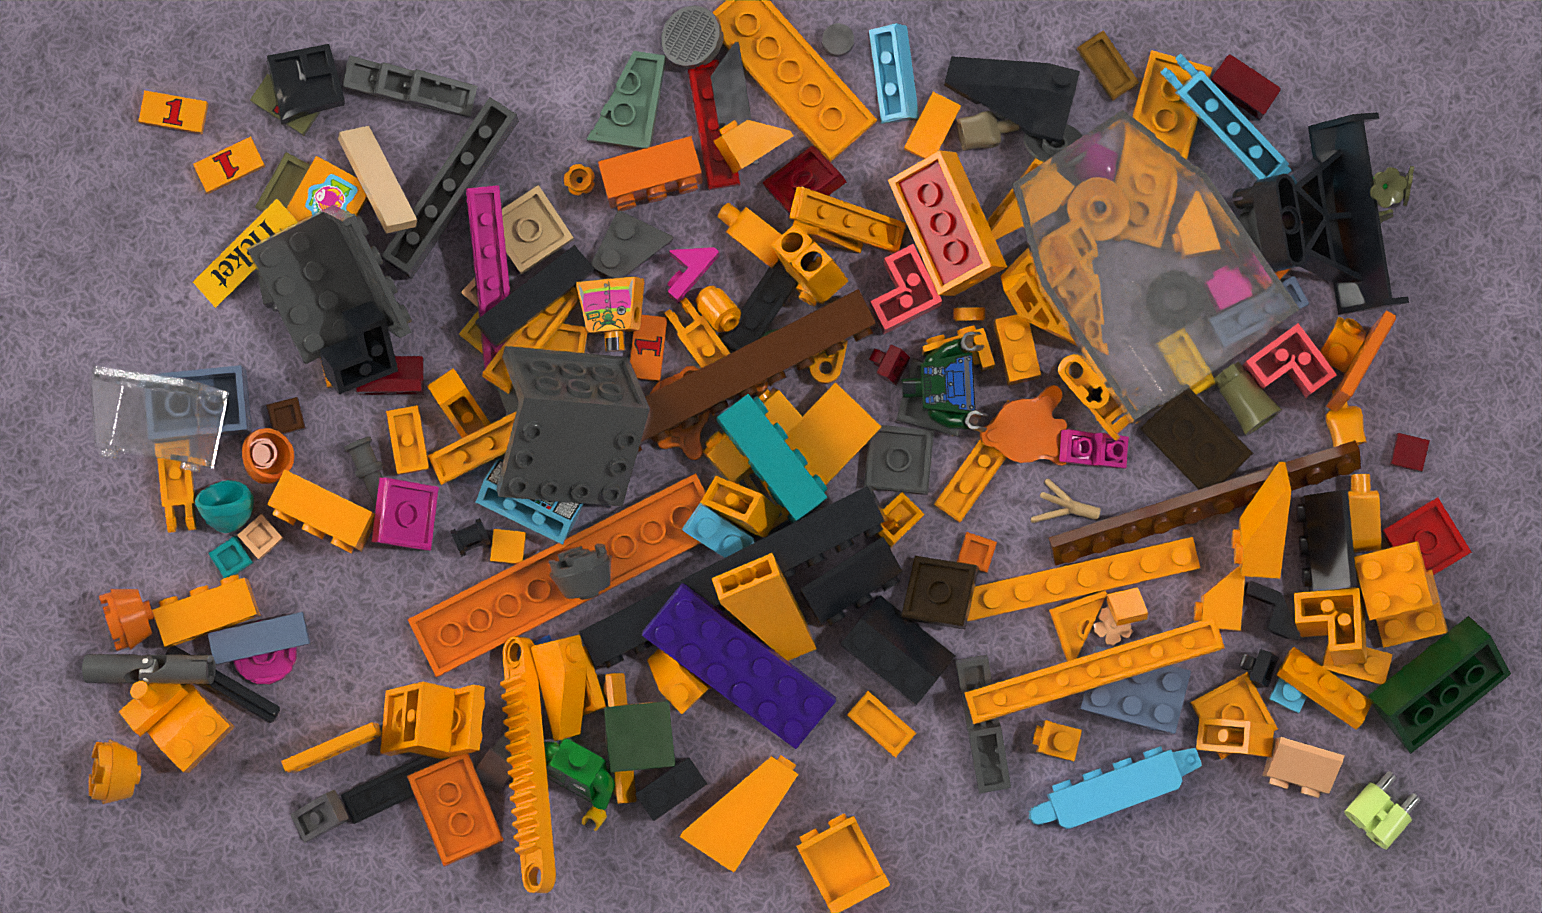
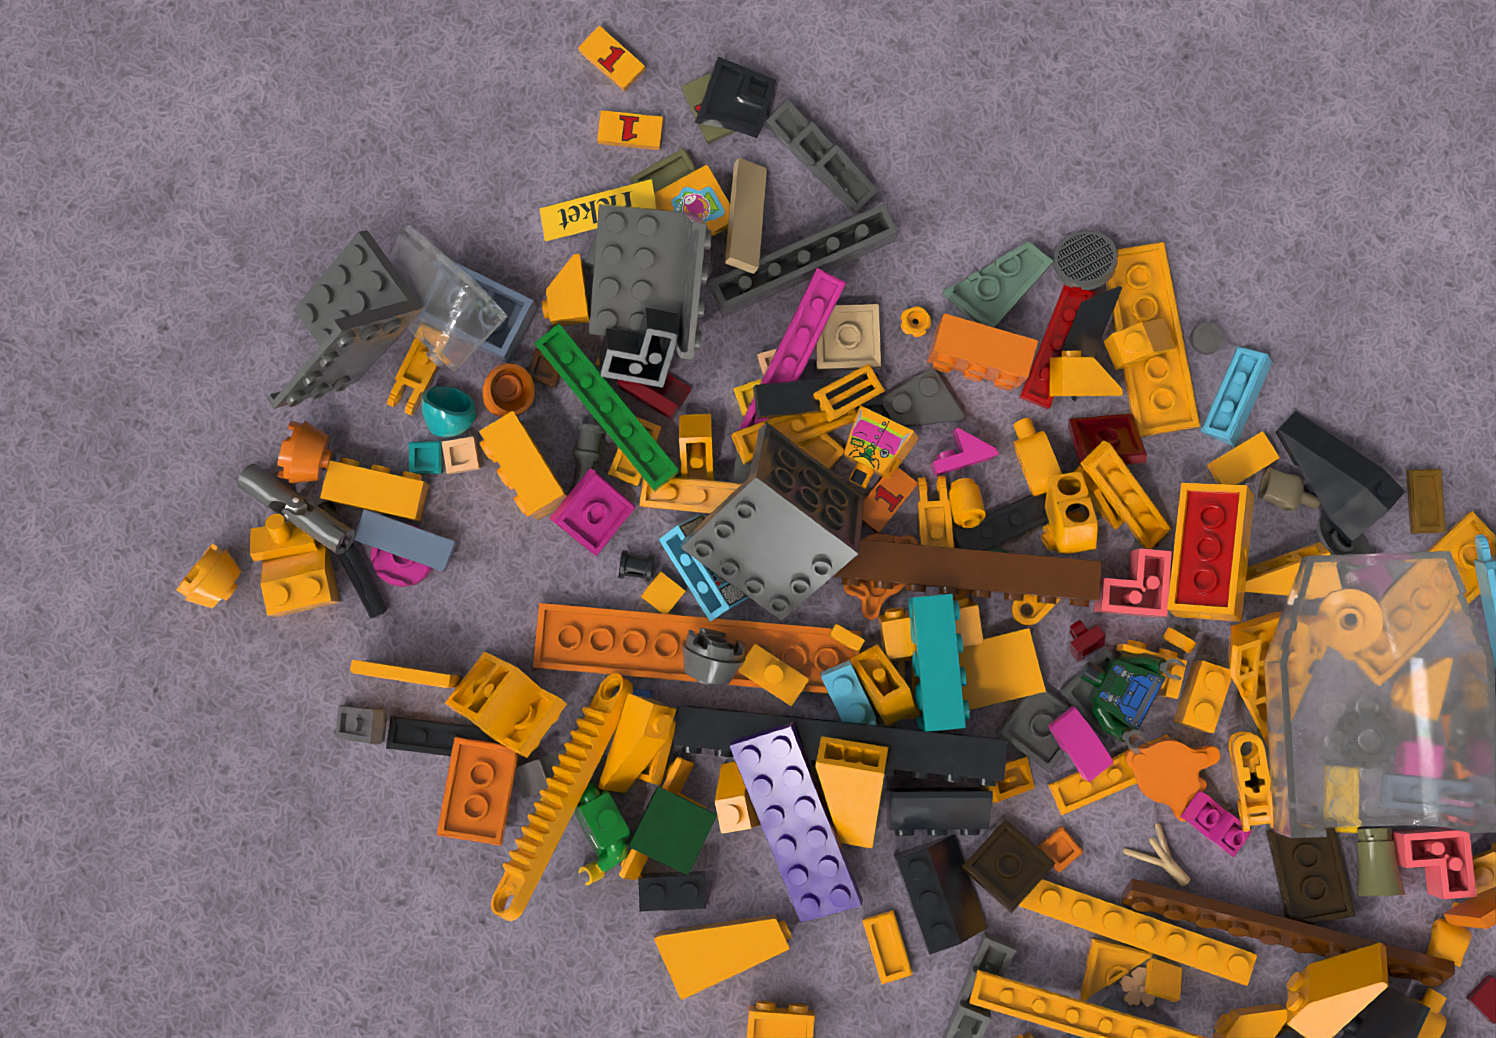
camera: 30 degrees right, 0 degrees up
(95, 476) = (354, 319): none -> dark grey bracket
(266, 343) = (567, 295): none -> light orange slope
(361, 417) = (607, 407): none -> green plate
(547, 299) = (827, 404): none -> light orange tile
(643, 556) = (773, 675): none -> light orange tile
(685, 486) = (846, 637): none -> light orange tile
(781, 81) = (1139, 343): none -> light orange slope
(937, 452) = (1081, 744): none -> dark pink slope

